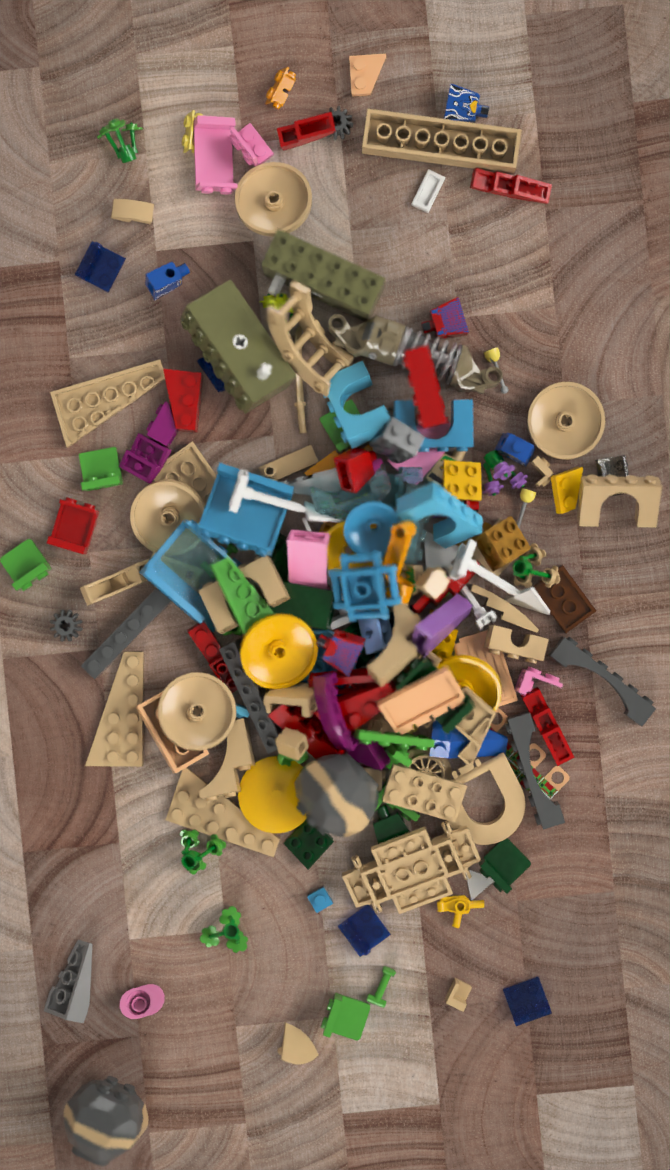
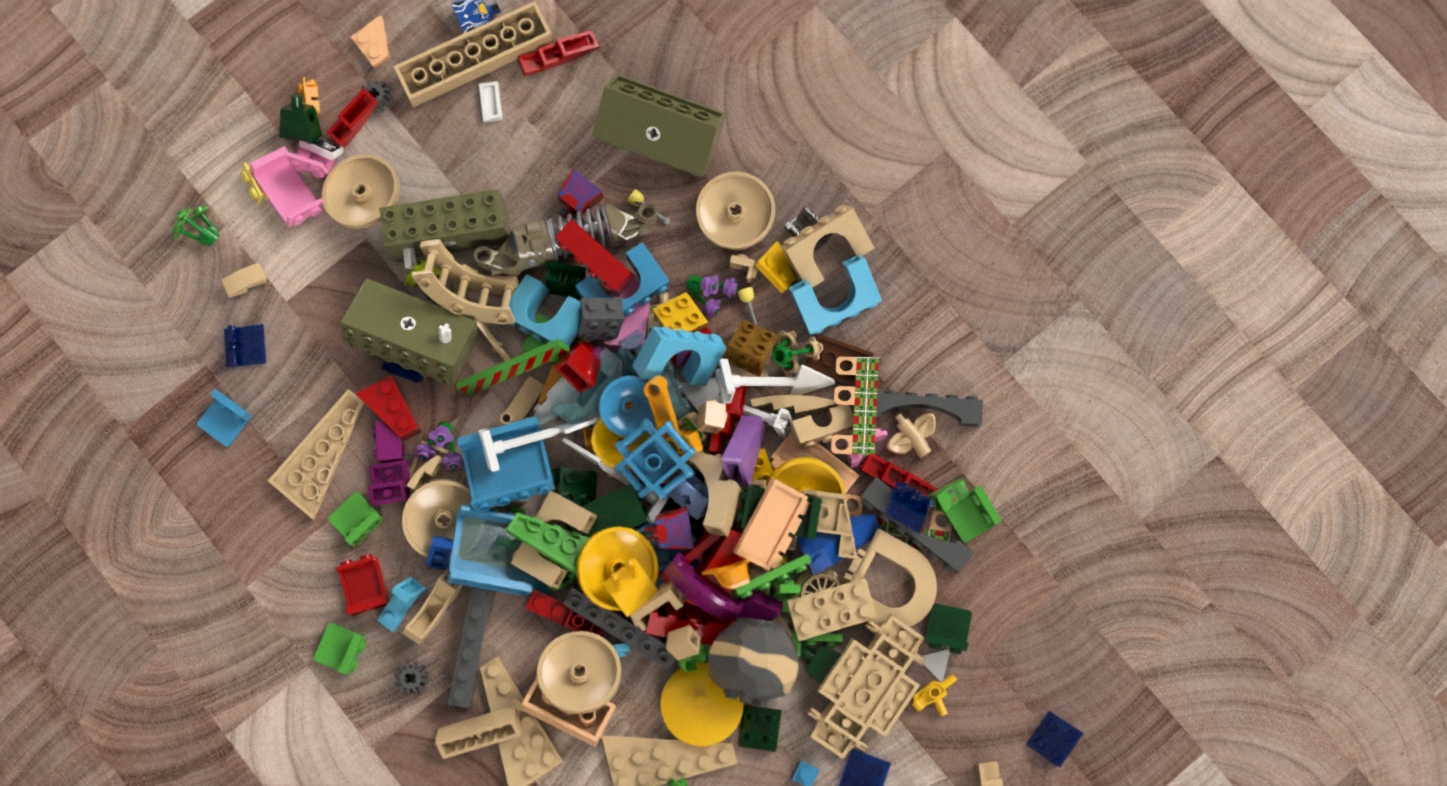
camera: 25 degrees left, 10 degrees down
(46, 317) = (224, 419): none -> dark azure bracket
(91, 701) = (478, 732): none -> tan brick
(94, 560) = (401, 602): none -> medium azure bracket
(149, 542) = (439, 552): none -> blue slope
(159, 281) = (309, 318): blue torso -> none
(183, 470) = (430, 468): none -> tan slope
(209, 450) = (441, 435): none -> medium lavender plant
(238, 756) = (644, 692): tan arch -> none
(260, 104) = (299, 121): none -> dark green torso
(265, 137) = (323, 148): none -> white tile
(279, 673) = (630, 587): none -> yellow plate
(301, 433) = (513, 367): none -> bright green tile
(308, 558) = (589, 470): bright pink panel -> none
(362, 719) = (732, 575): none -> light orange piece
(390, 385) = (563, 277): none -> dark green hinge
(515, 448) = (709, 262): blue torso -> none
(539, 753) = (909, 506): none -> clear blue hinge
(551, 307) = (658, 125): none -> olive piece
(562, 648) = (865, 405): none -> piece
(577, 763) = (949, 495): none -> bright green leg
(581, 696) = (912, 435): none -> tan plant
(584, 790) = (973, 515): none -> bright green bracket
(618, 559) = (862, 296): none -> medium azure arch

